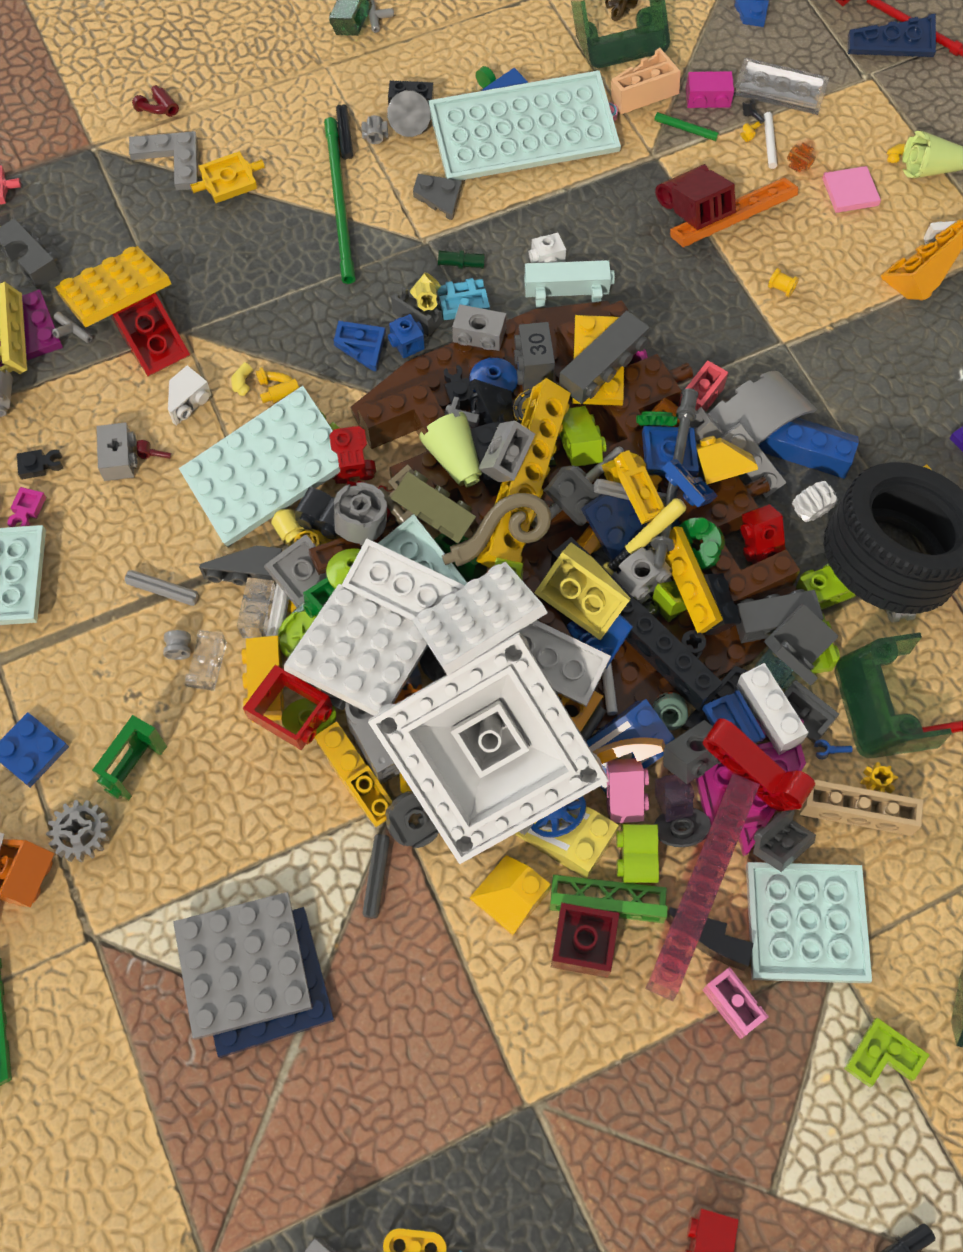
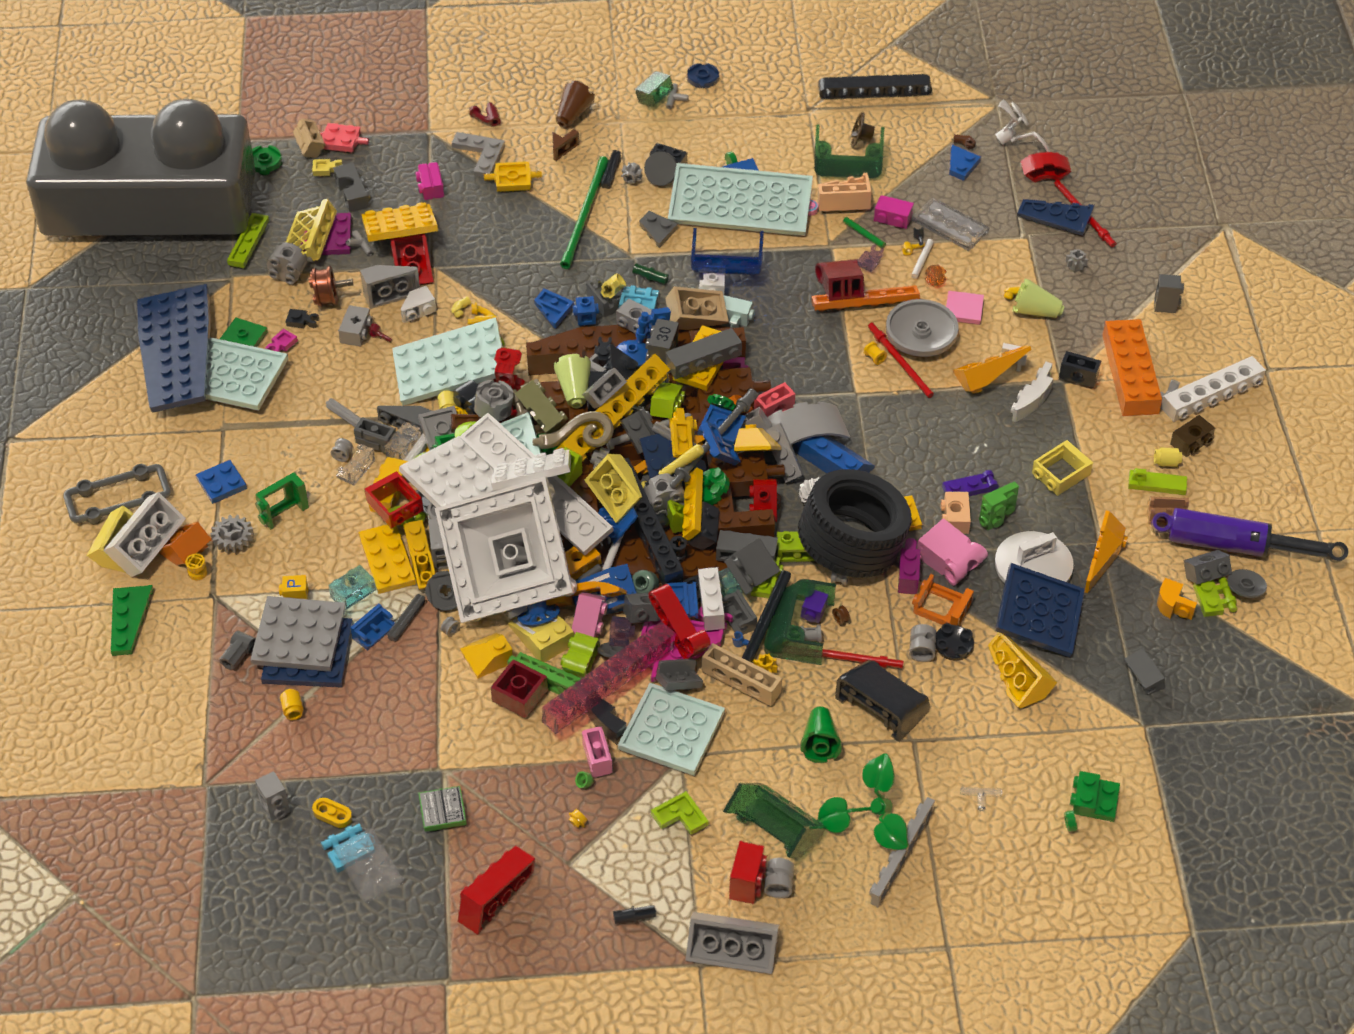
camera: 20 degrees right, 15 degrees down
(53, 407) = (325, 286): none -> copper wheel
(54, 908) = (196, 567): none -> yellow wheel
(125, 213) = (430, 181): none -> dark pink brick
(135, 378) = (388, 283): none -> light grey slope
(165, 1011) = (239, 646): none -> dark grey piece
(203, 890) = (294, 587): none -> yellow brick
(212, 609) = (373, 434): none -> dark grey brick
(260, 56) = (573, 103): none -> reddish brown cone
(271, 116) = (564, 144): none -> reddish brown slope
(279, 1084) = (291, 704): none -> yellow brick
(282, 874) = (352, 587): none -> clear light blue brick
(309, 792) = (387, 558): none -> yellow plate
(339, 911) = (372, 627): none -> blue hinge
(443, 870) = (450, 626): none -> light grey bush
(505, 331) = (646, 319): none -> blue plate
(538, 552) = (598, 456): none -> light grey gear
(547, 291) = (696, 307): none -> tan slope
(554, 219) = (726, 264): none -> clear blue windscreen
(566, 1177) = (442, 808): none -> tile
(714, 157) = (870, 259): none -> plate
(738, 1056) = (583, 777): none -> bright green hinge
(754, 1118) = (577, 818): none -> yellow plate
(777, 258) = (881, 337): none -> red bar
(824, 232) = (922, 327): none -> light grey dish
(847, 710) = (766, 616): none -> black axle
(902, 671) = (814, 606): none -> dark purple brick
(915, 706) = (812, 633): none -> light grey bush
(931, 667) = (841, 614): none -> reddish brown bush
(947, 89) = (1076, 260): none -> light grey gear

